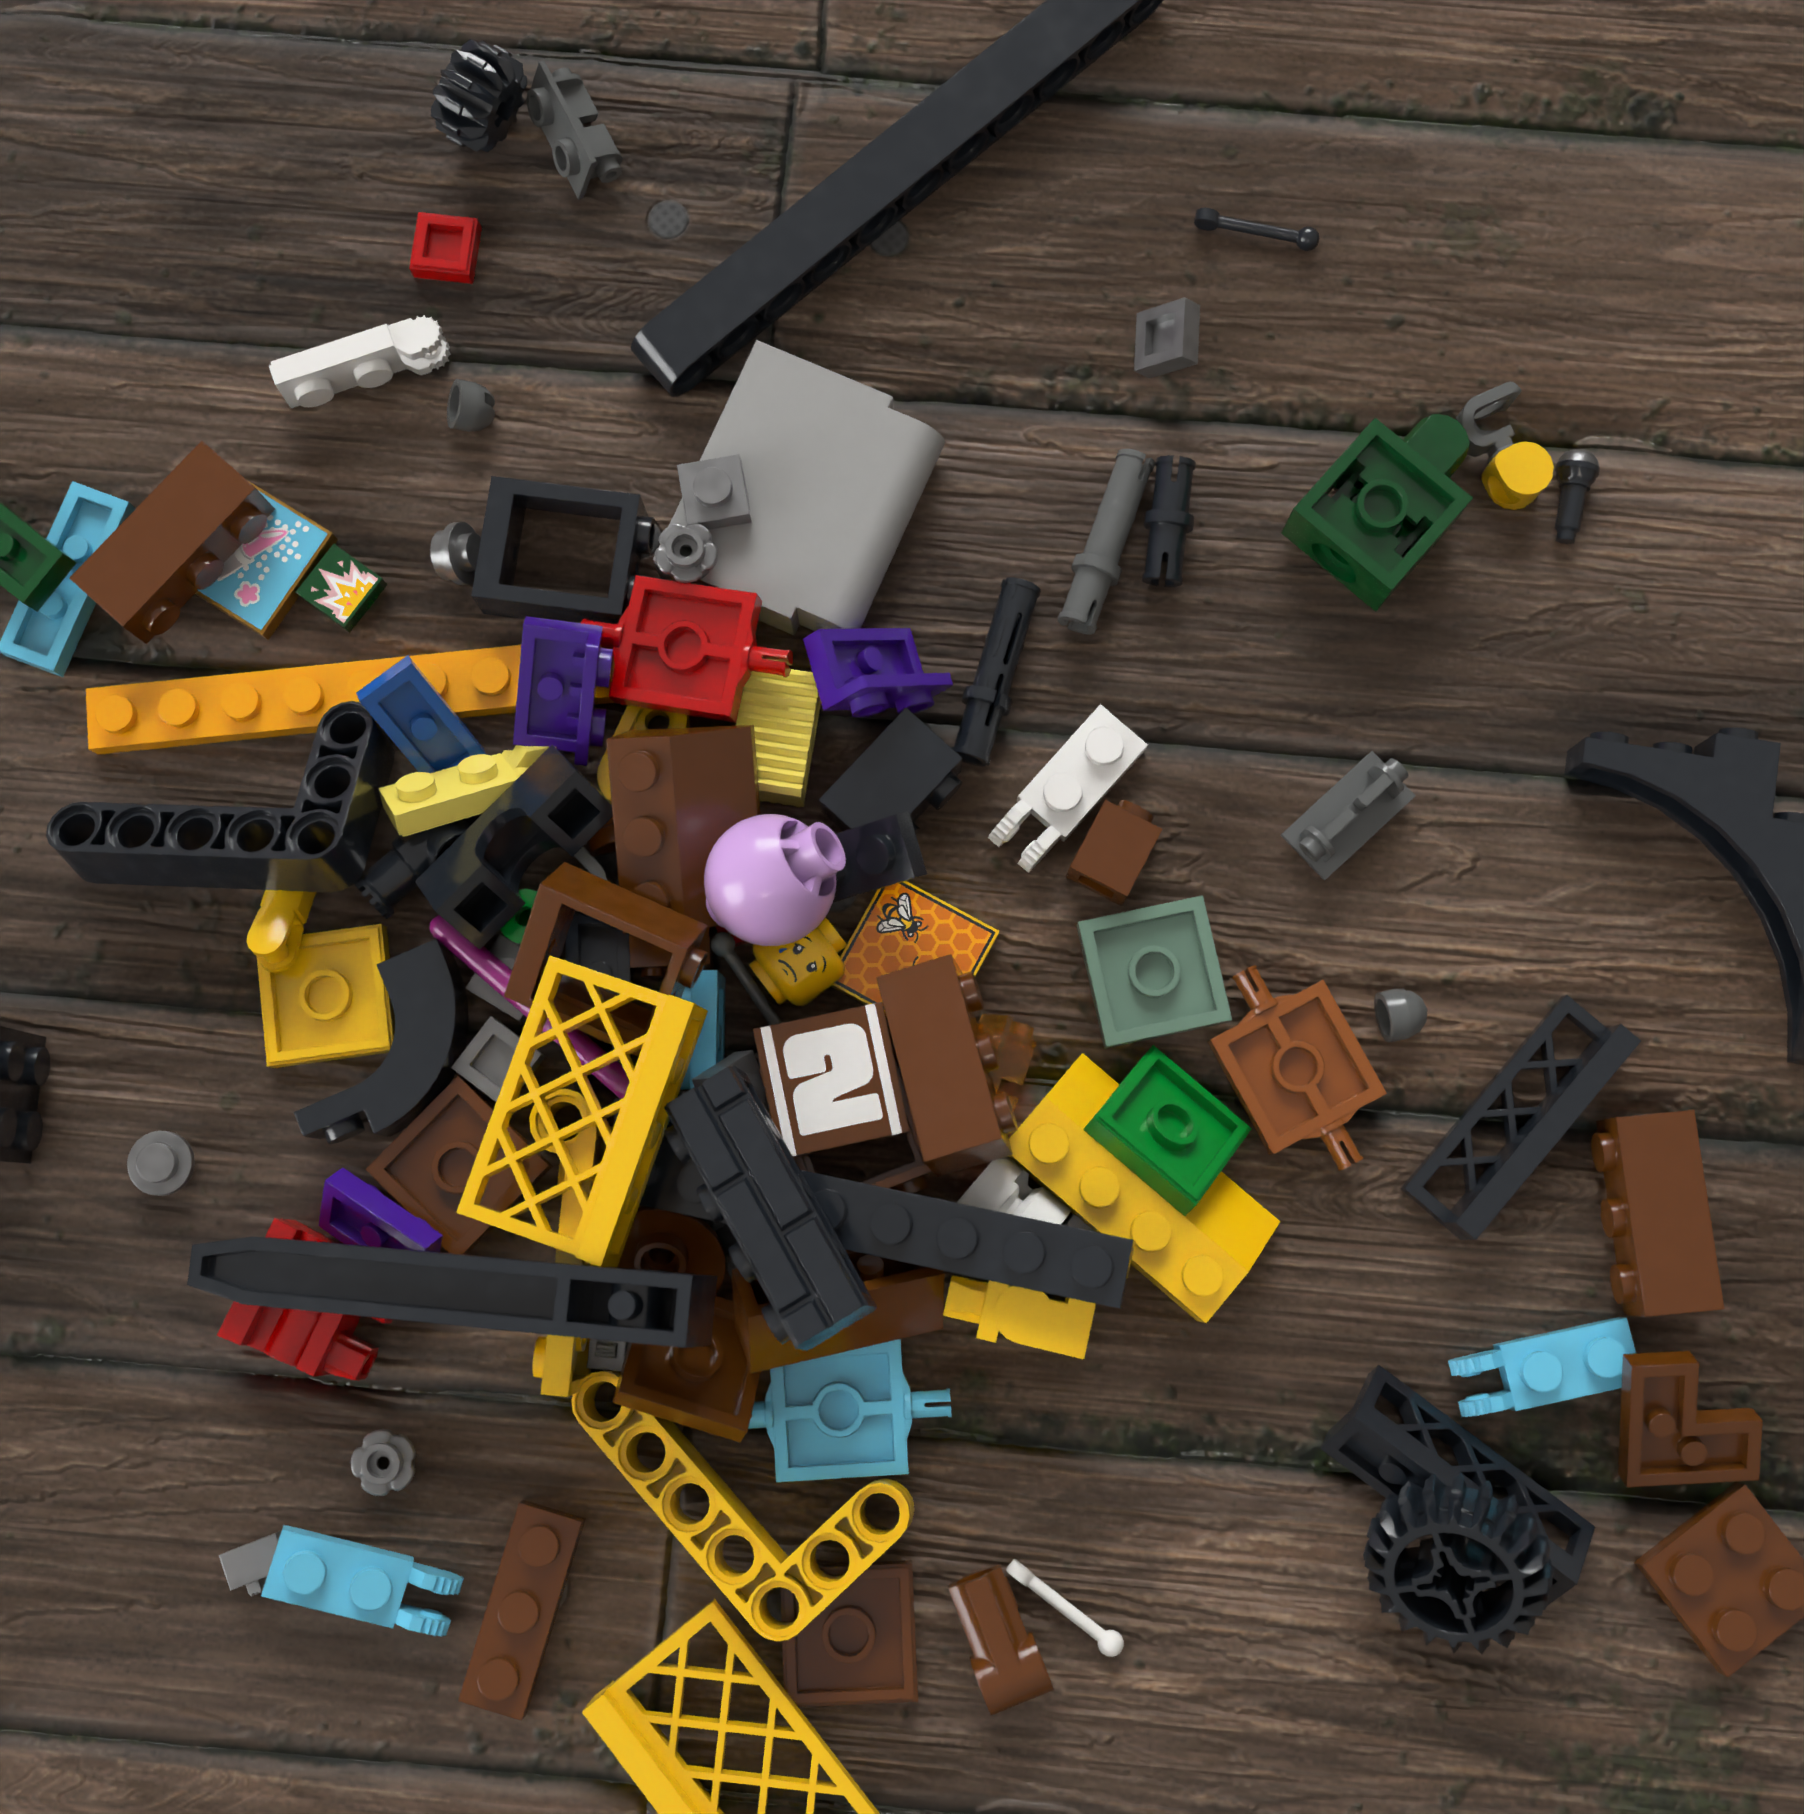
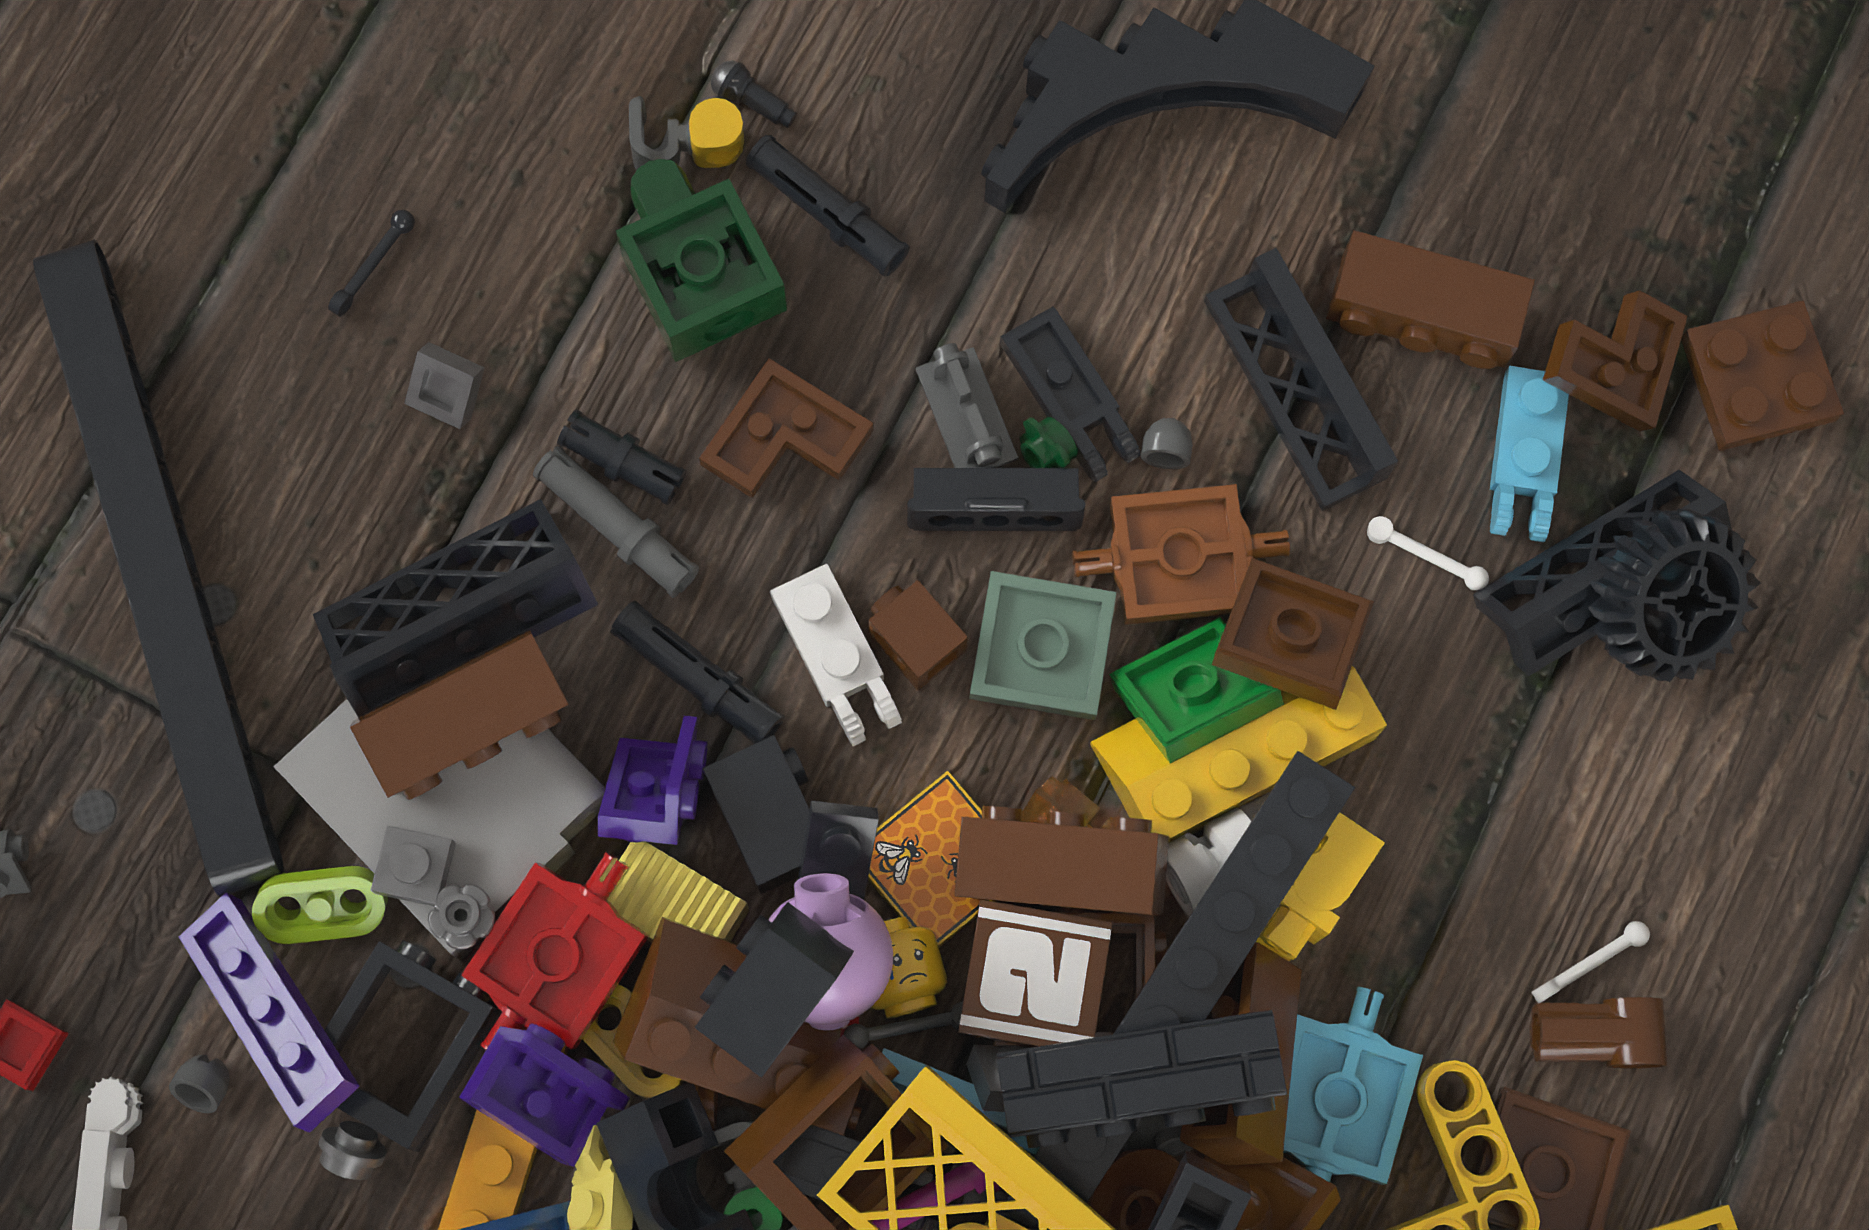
camera: 75 degrees left, 5 degrees down
(541, 429) = (268, 1013): none -> plate
(655, 441) = (323, 907): none -> lime plate
(713, 837) = (773, 989): none -> black brick
(859, 473) = (460, 717): none -> reddish brown brick
(960, 459) = (438, 636): none -> black fence
(1257, 1199) = (1293, 633): none -> reddish brown tile
(1271, 645) = (782, 414): none -> reddish brown plate
(1274, 873) = (995, 499): none -> black piece
(1346, 901) = (1047, 444): none -> dark green plate
(1404, 1253) = (1381, 530): none -> white hinge
(1414, 898) = (1068, 387): none -> black hinge
(1487, 628) = (846, 221): none -> black pin

